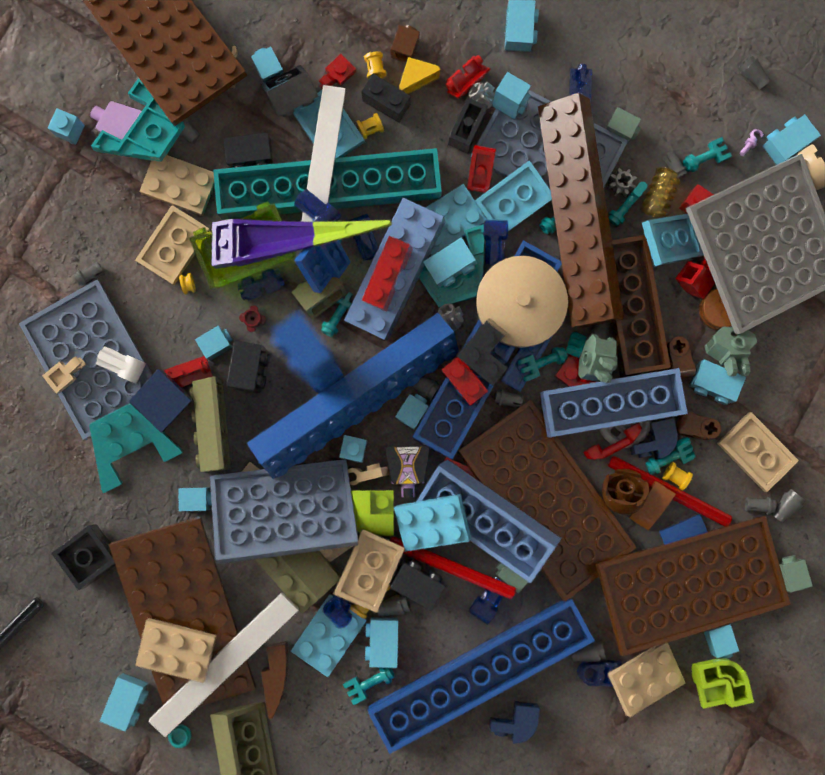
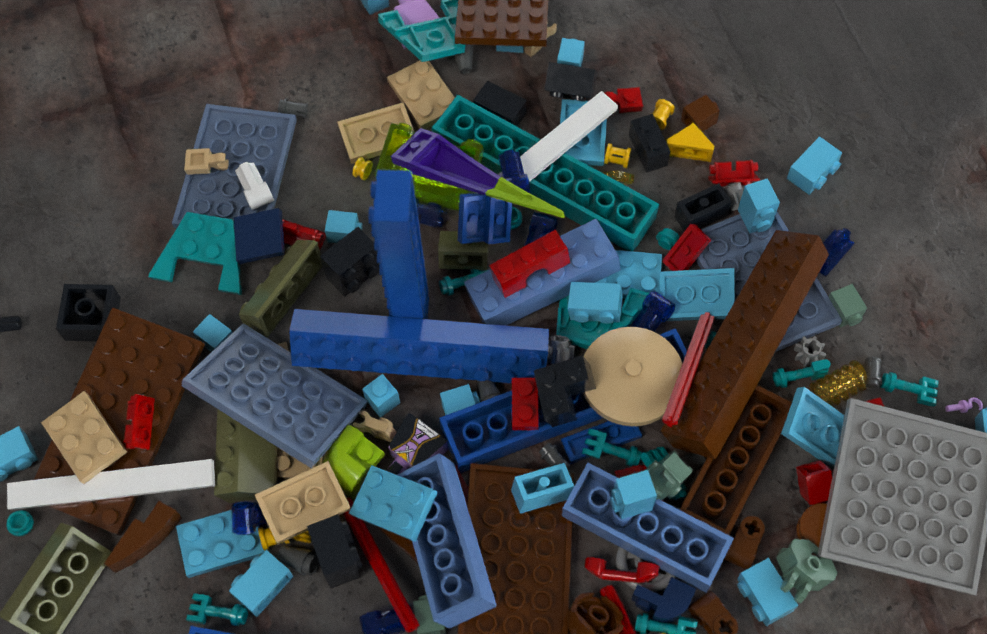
camera: 45 degrees right, 20 degrees down
(213, 617) = (141, 414): none -> red hinge
(383, 145) = (620, 176): none -> clear yellow tile
(459, 168) = (667, 238): none -> teal plate
(524, 431) = (542, 488): none -> medium azure brick
(559, 267) = (688, 370): none -> red axle
(598, 395) = (633, 495): none -> medium azure brick

